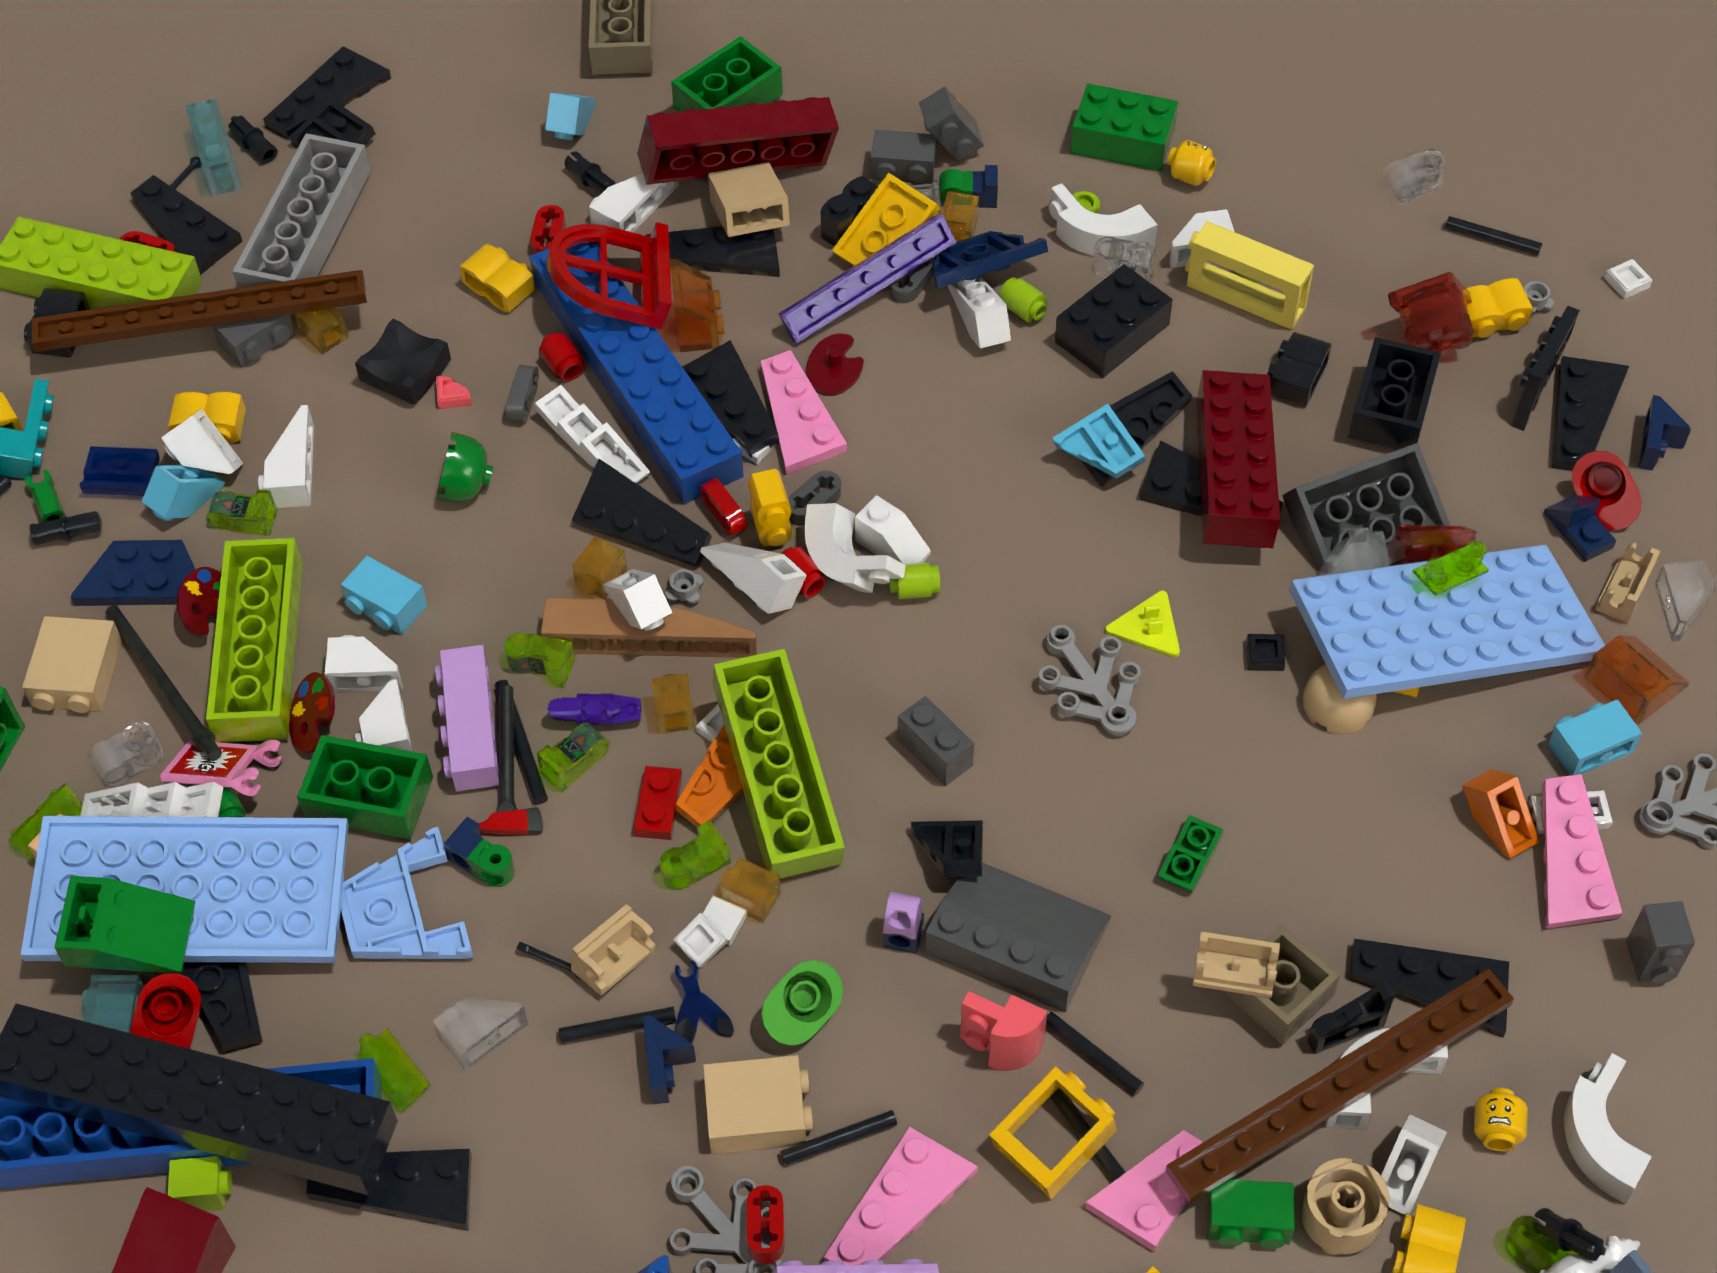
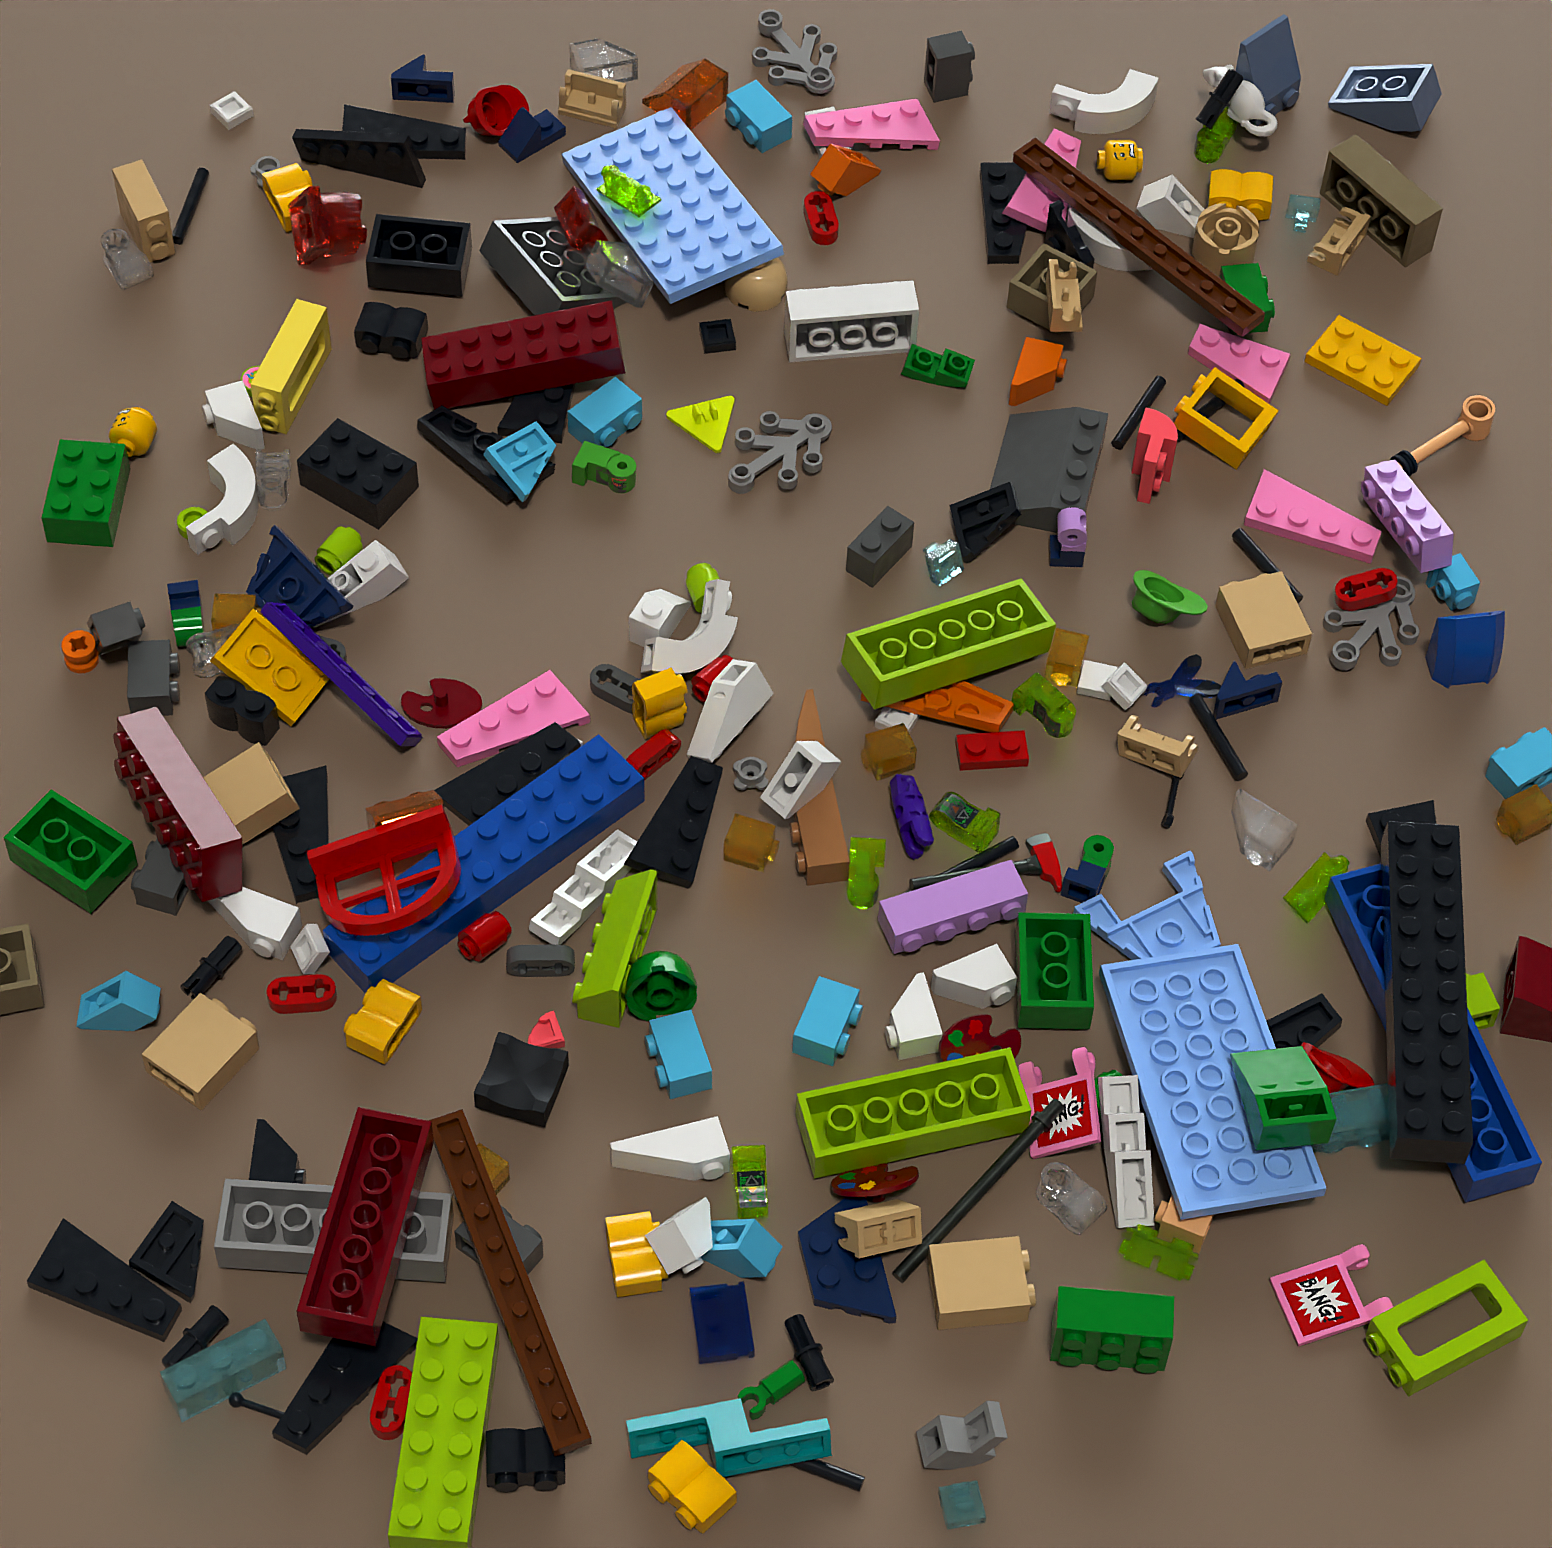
camera: 105 degrees left, 0 degrees up
(149, 589) = (880, 1227): none -> tan hinge
(268, 209) = (365, 1226): none -> dark red brick
(384, 194) = (273, 1158): none -> black slope
(389, 479) = (679, 1054): none -> medium azure brick
(509, 159) = (201, 1050): none -> tan brick
(512, 447) = (617, 945): none -> lime slope
(905, 797) = (943, 561): none -> clear light blue tile
(1095, 516) = (604, 467): none -> bright green leg
(1159, 529) = (605, 414): none -> medium azure brick
(1163, 947) = (1036, 370): none -> orange slope
(1252, 762) = (850, 321): none -> white brick
(1433, 779) = (826, 217): none -> red beam
(1468, 182) = (143, 210): none -> tan brick
(1493, 1044) = (1032, 198): none -> bright pink wing

